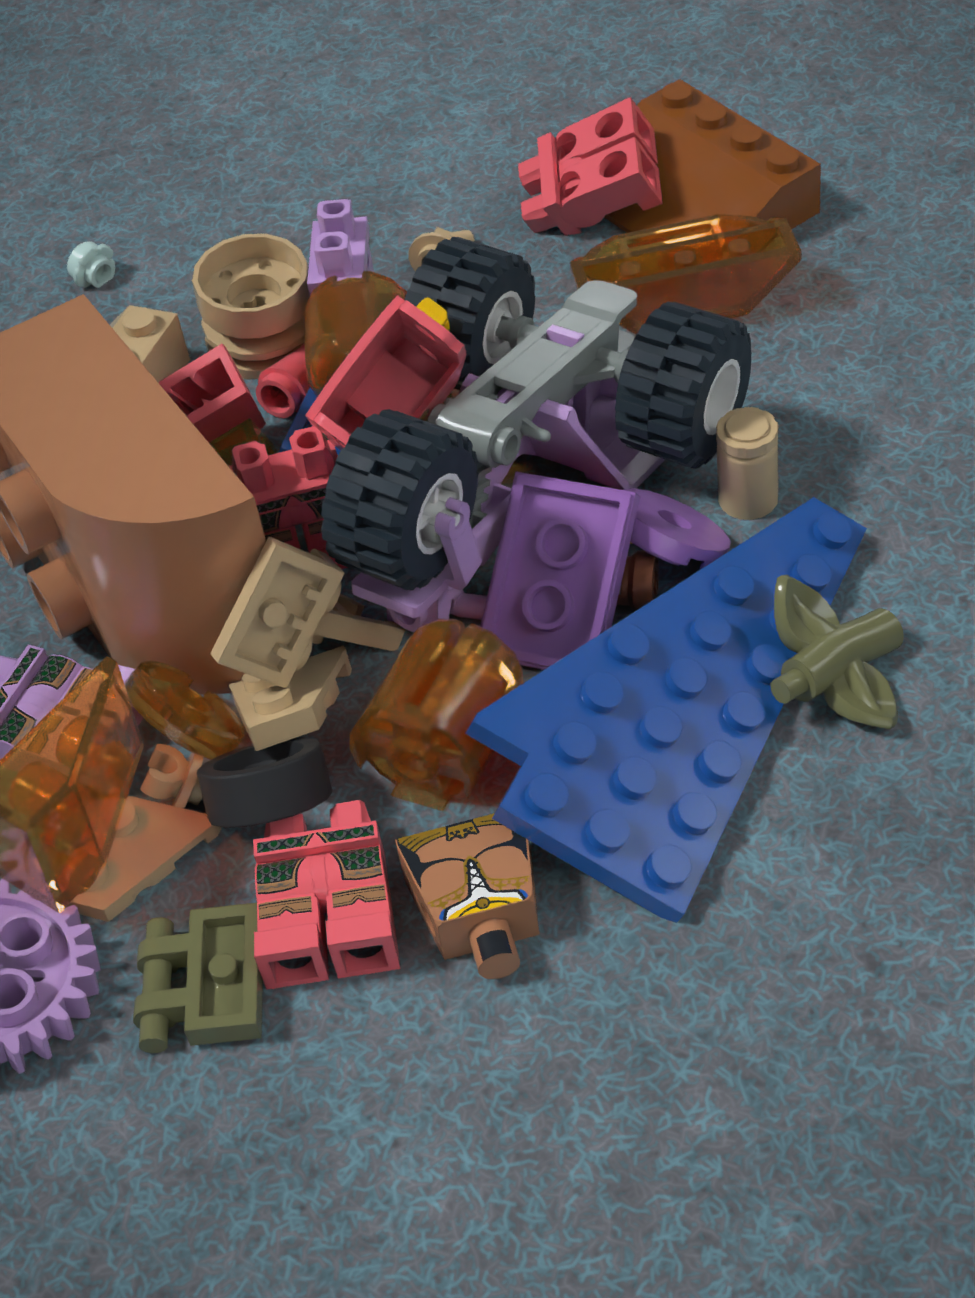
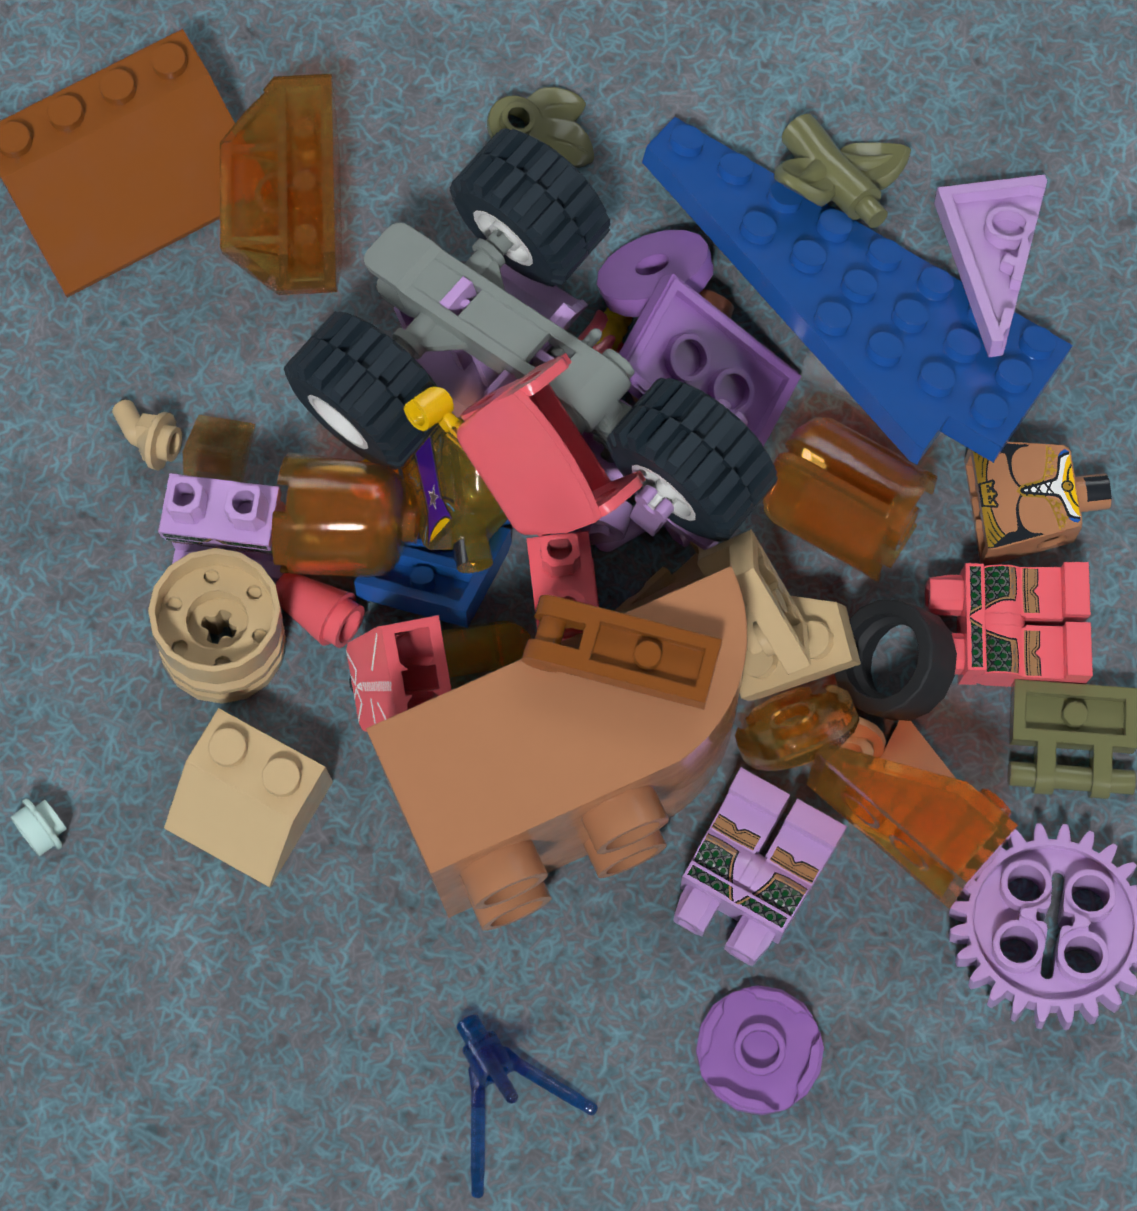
camera: 85 degrees left, 25 degrees up
(146, 424) = (624, 651): none -> dark orange plate
(591, 170) = (91, 272): coral hips -> none
(747, 463) = (605, 173): tan piece -> none
(791, 805) = (990, 241): none -> lavender wing
(816, 441) = (548, 117): none -> olive plate

